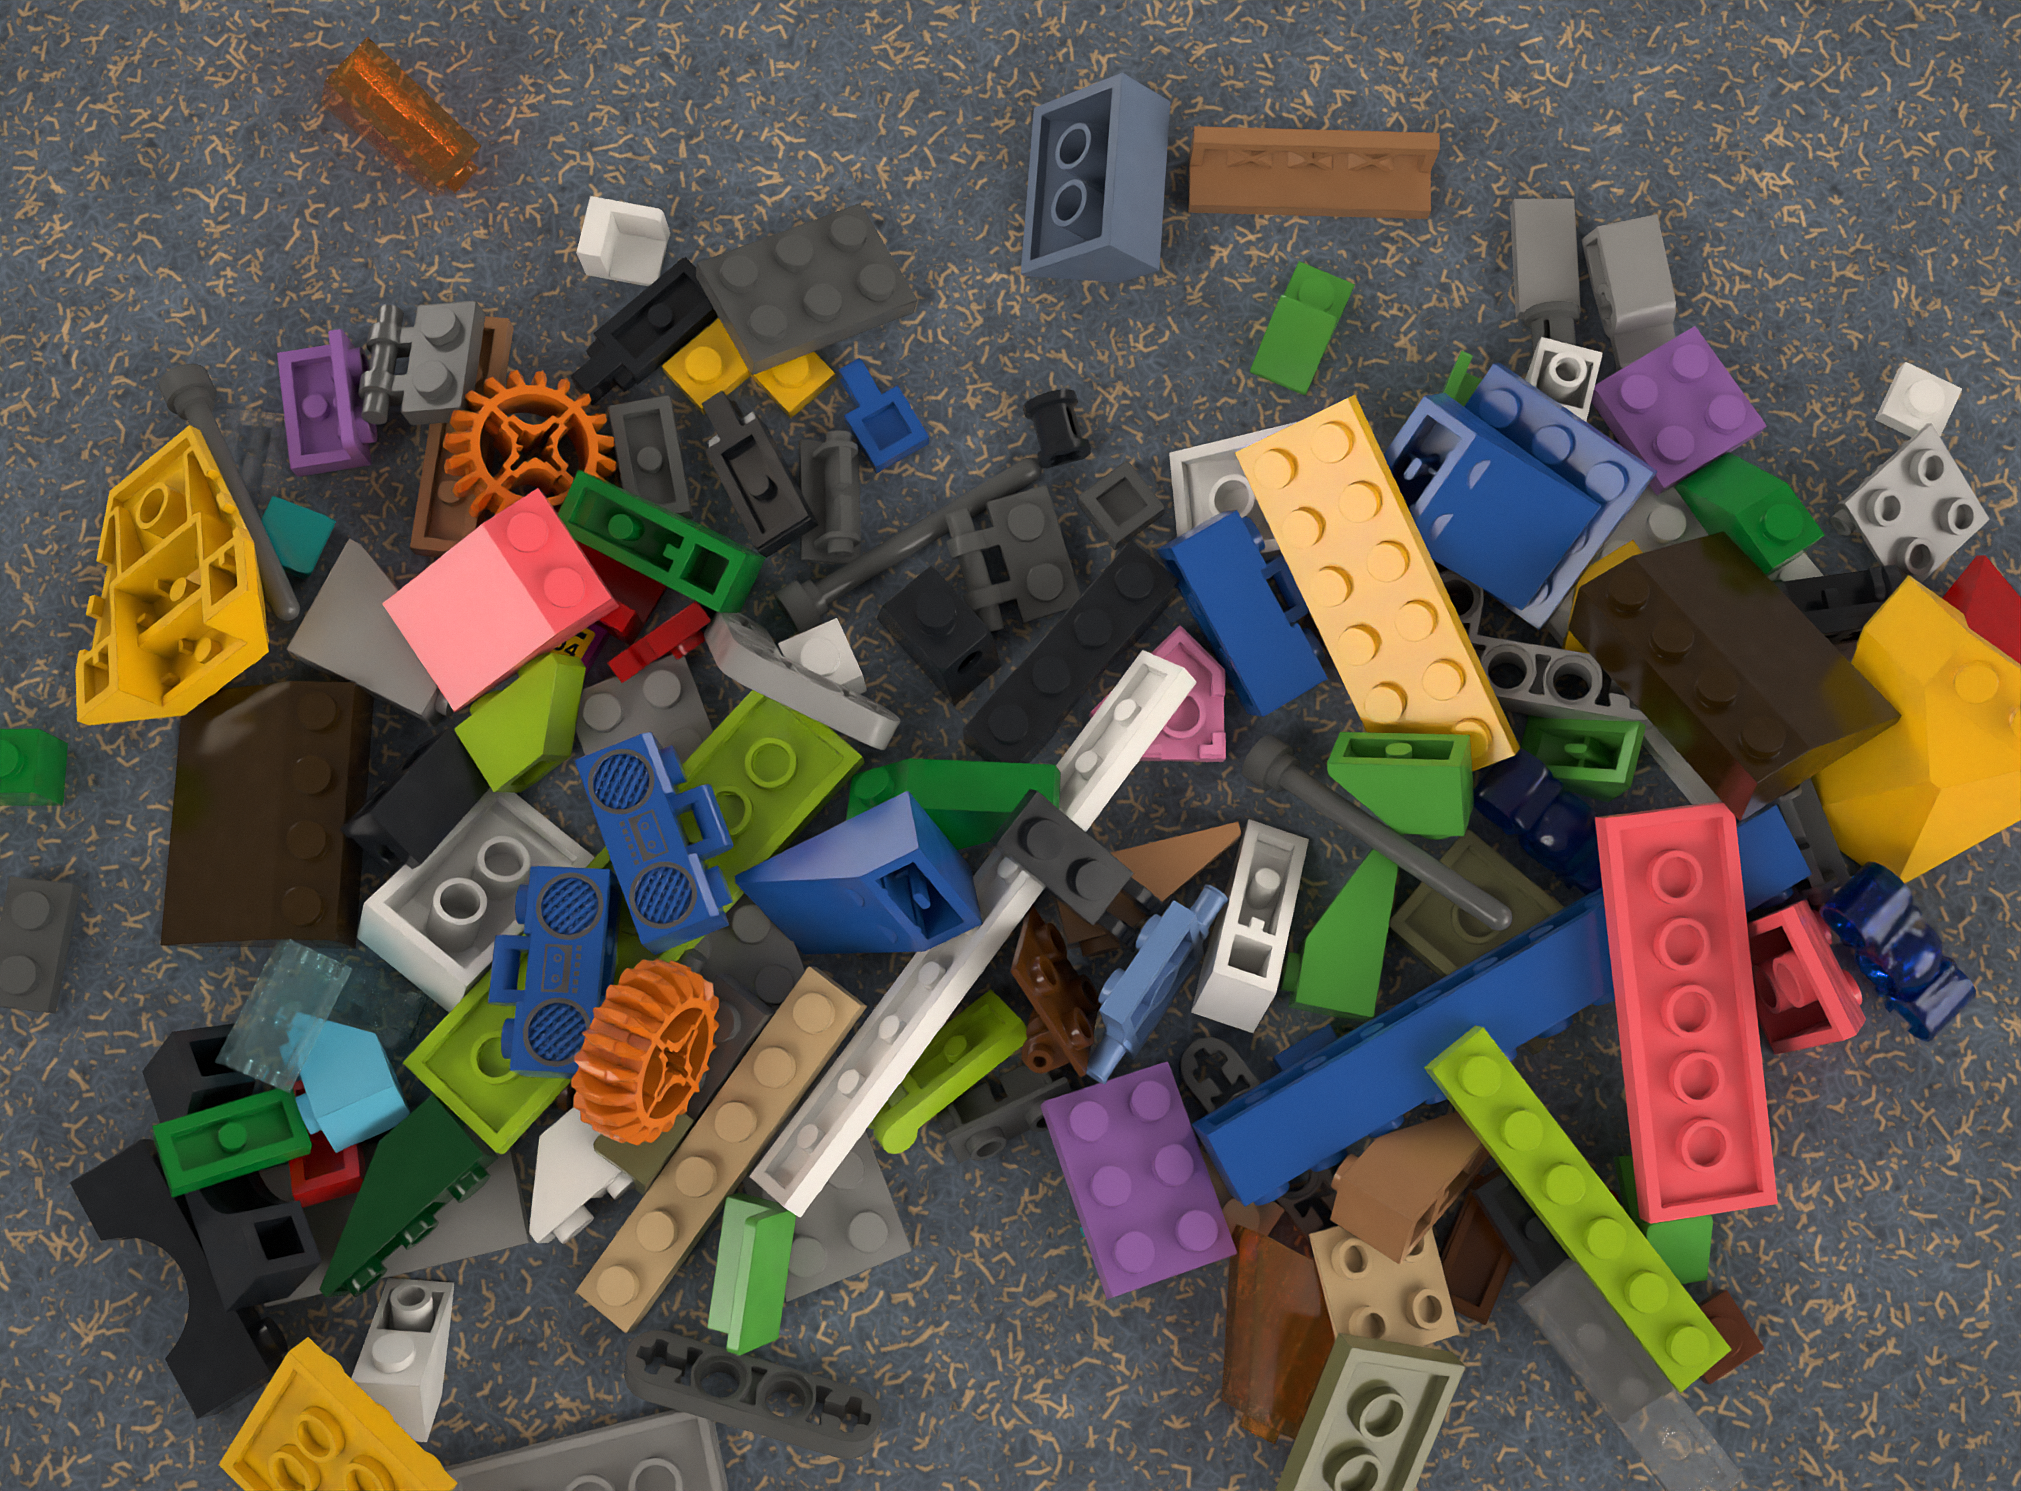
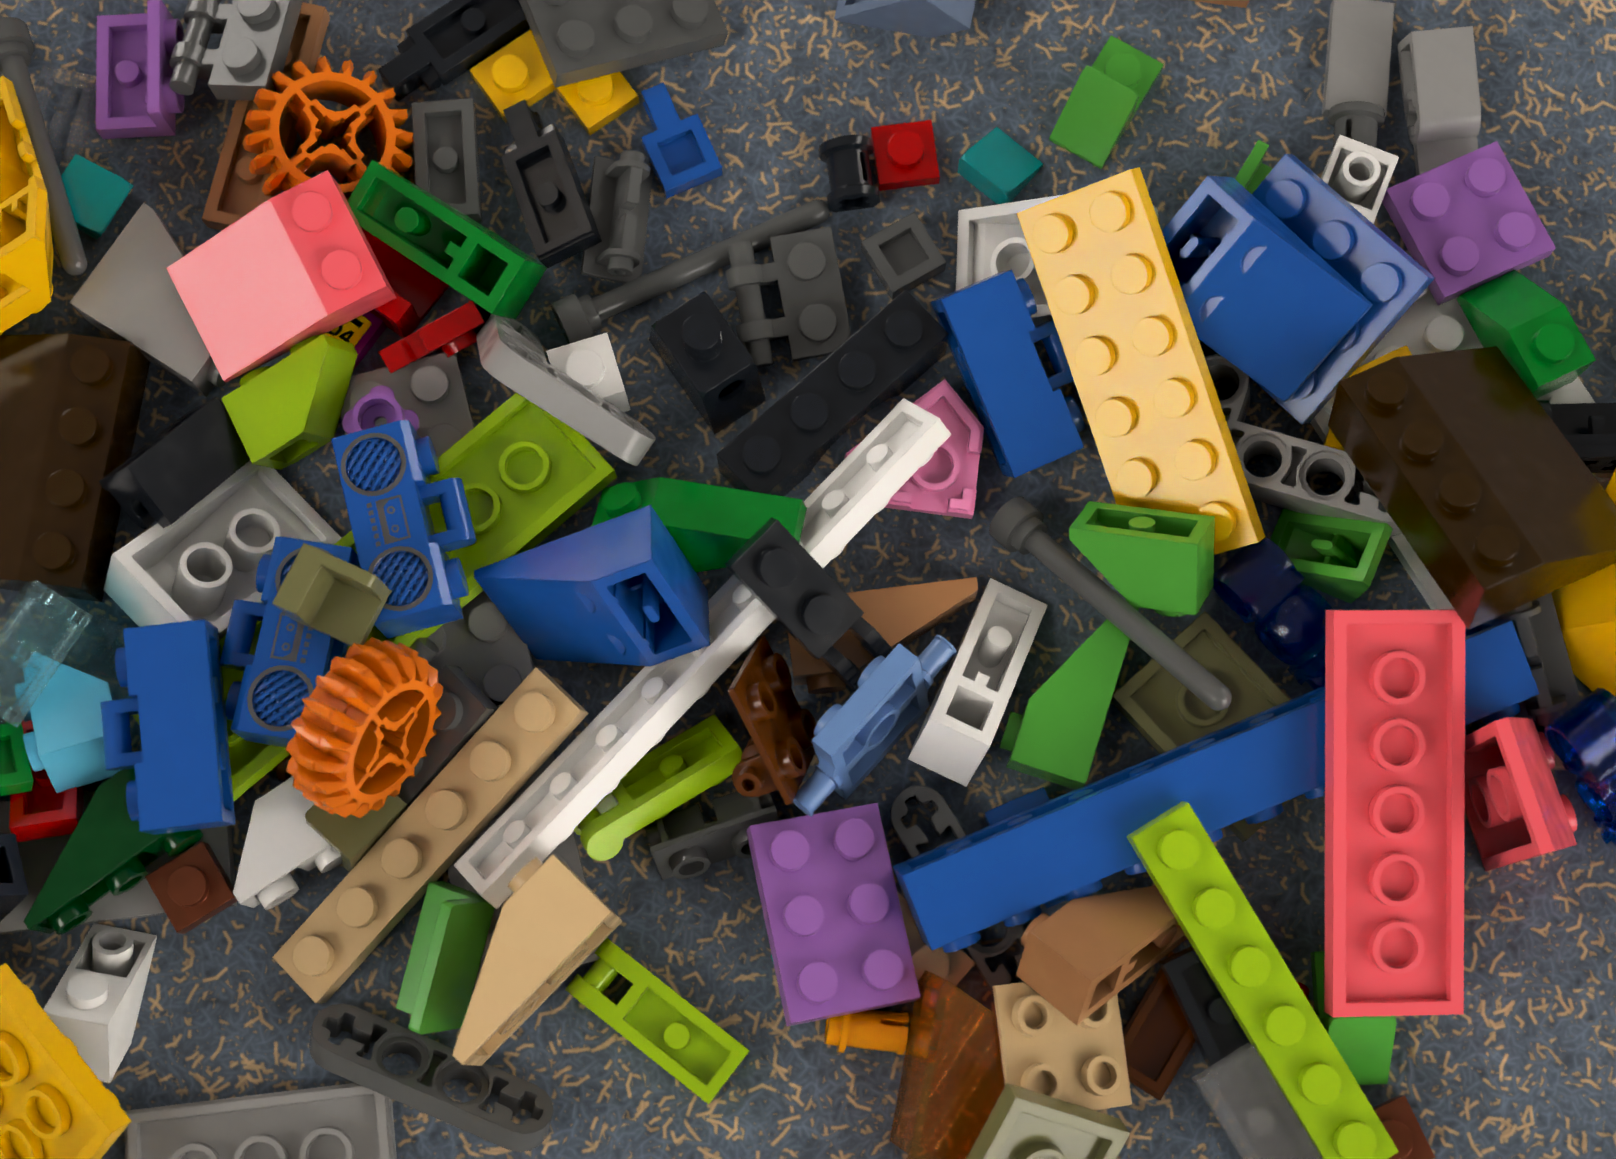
camera: 10 degrees right, 0 degrees up
(460, 1074) = (180, 703): none -> blue piece
(485, 1231) = (192, 887): none -> copper plate
(597, 922) = (331, 596): none -> olive panel
(614, 716) = (375, 405): none -> medium lavender plate
(846, 1249) = (535, 947): none -> tan slope
(976, 1309) = (660, 1022): none -> lime plate
(1109, 403) = (905, 155): none -> red plate
(1188, 1291) = (869, 1031): none -> light orange pin
(1204, 405) = (998, 166): none -> teal slope

